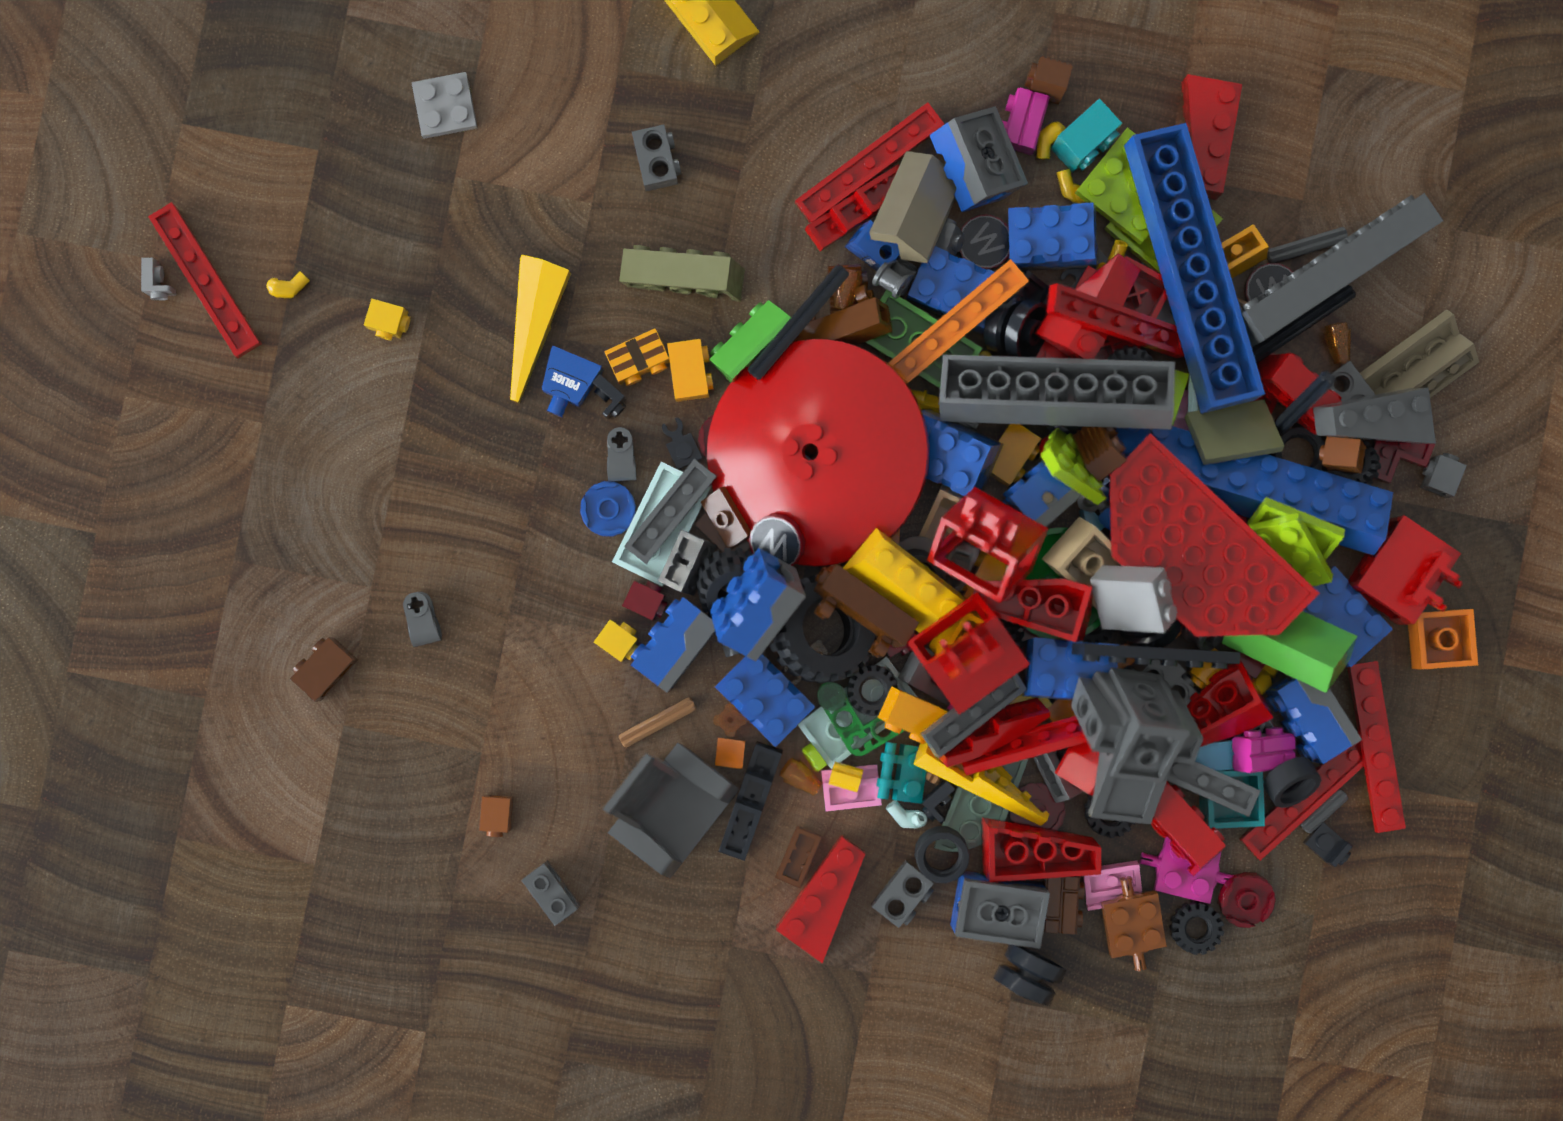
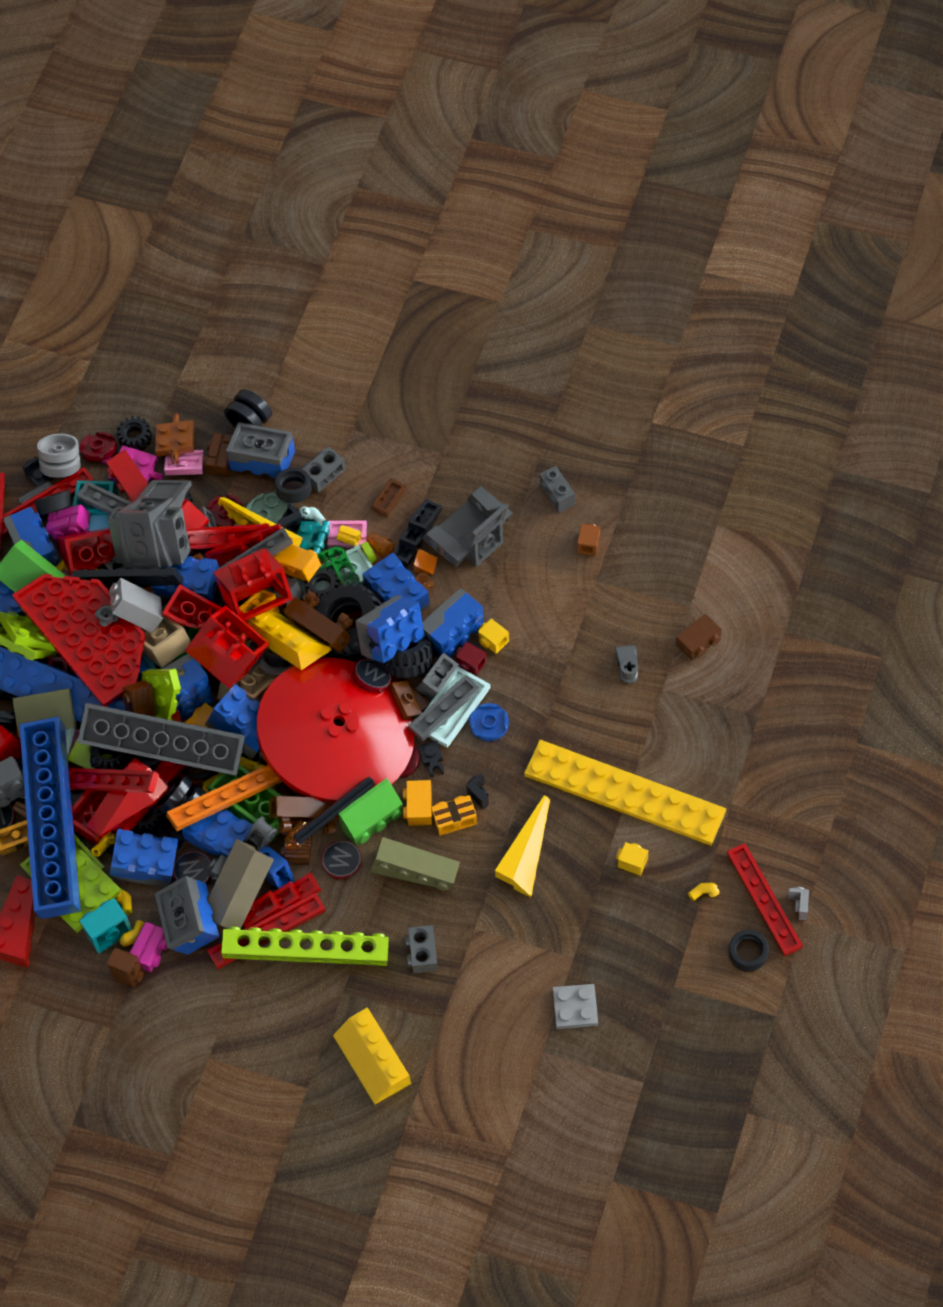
camera: 165 degrees left, 25 degrees down
(202, 192) = (746, 935): none -> black tyre
(408, 421) = (625, 792): none -> yellow plate
(568, 379) = (505, 805): blue torso -> none
(620, 461) = (475, 751): dark grey piece -> none
(657, 722) = (475, 585): medium nougat axle -> none
(784, 279) = (341, 859): none -> black tile
(797, 129) = (295, 953): none -> lime brick
(819, 906) = (382, 461): red wedge -> none
(1032, 852) = (230, 480): red wedge -> none
(1181, 573) = (105, 610): none -> dark grey plate
(1301, 869) = (58, 455): none -> light grey wheel

